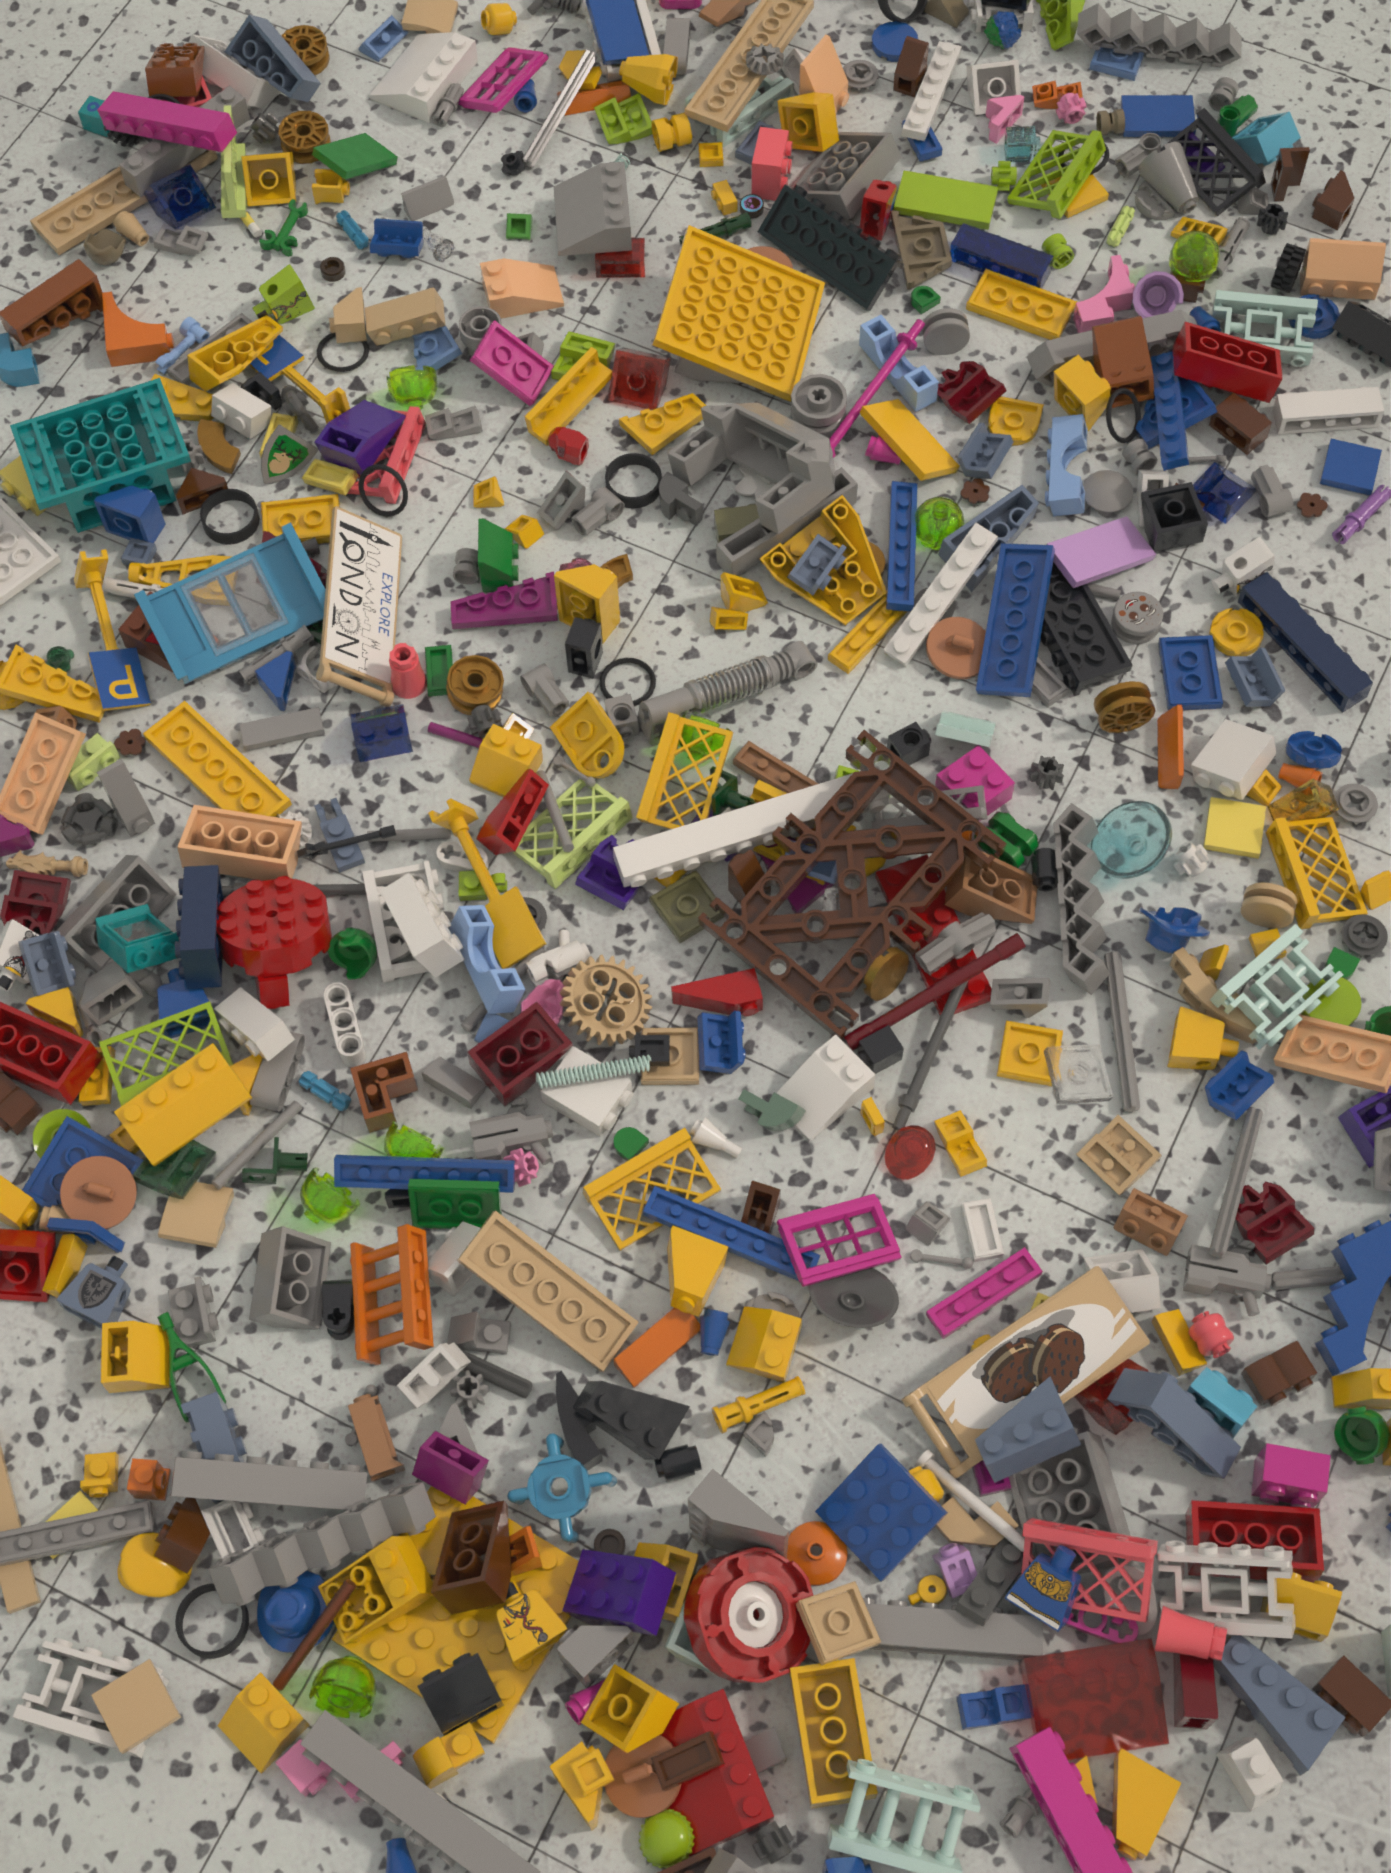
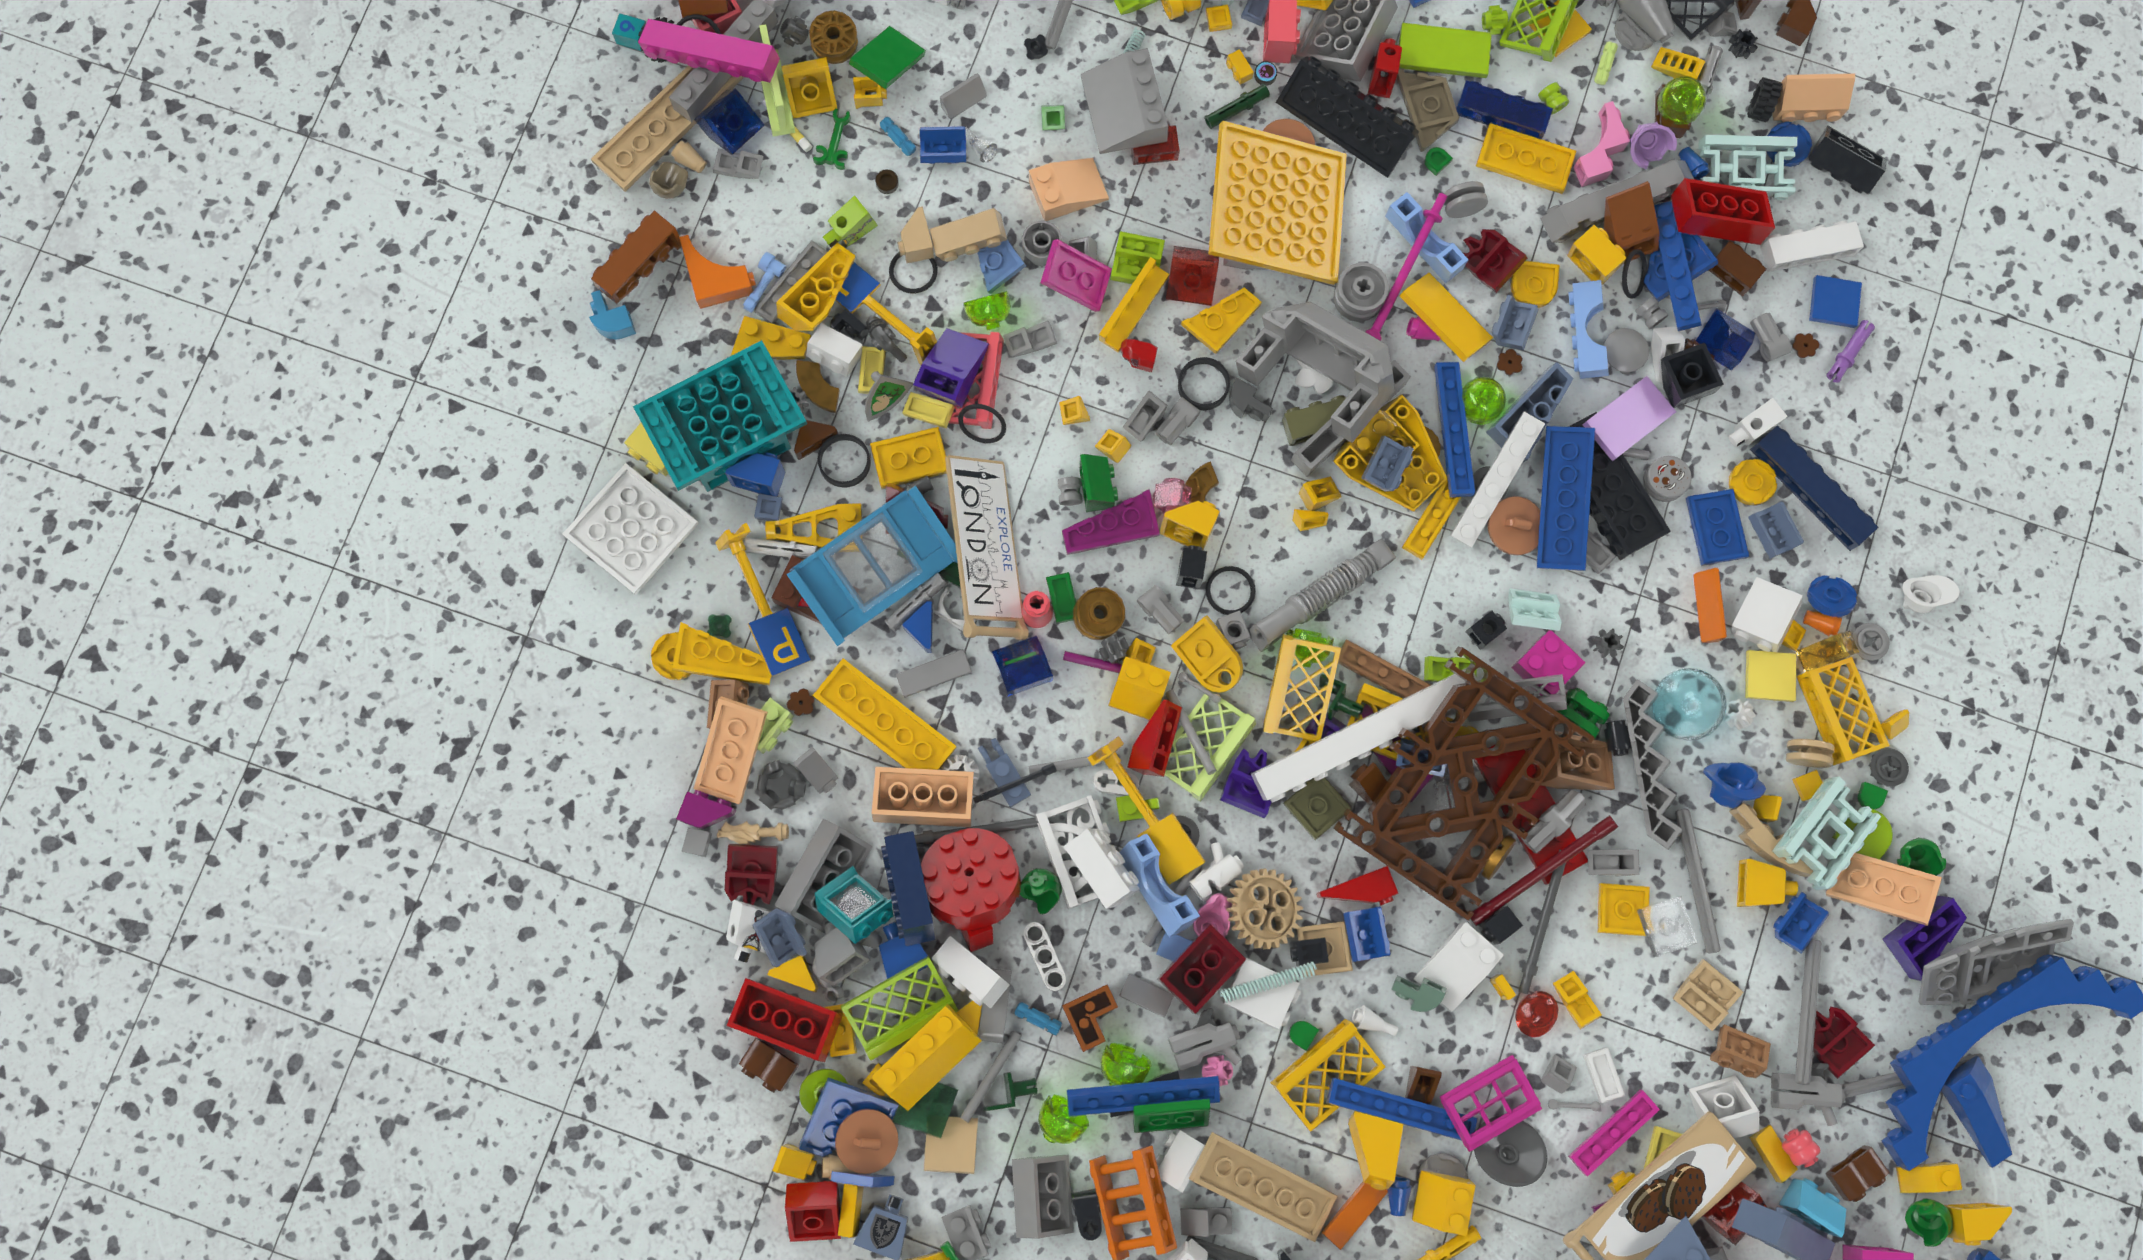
camera: 15 degrees left, 15 degrees up
(1124, 707) = (1669, 575): pearl gold wheel -> none

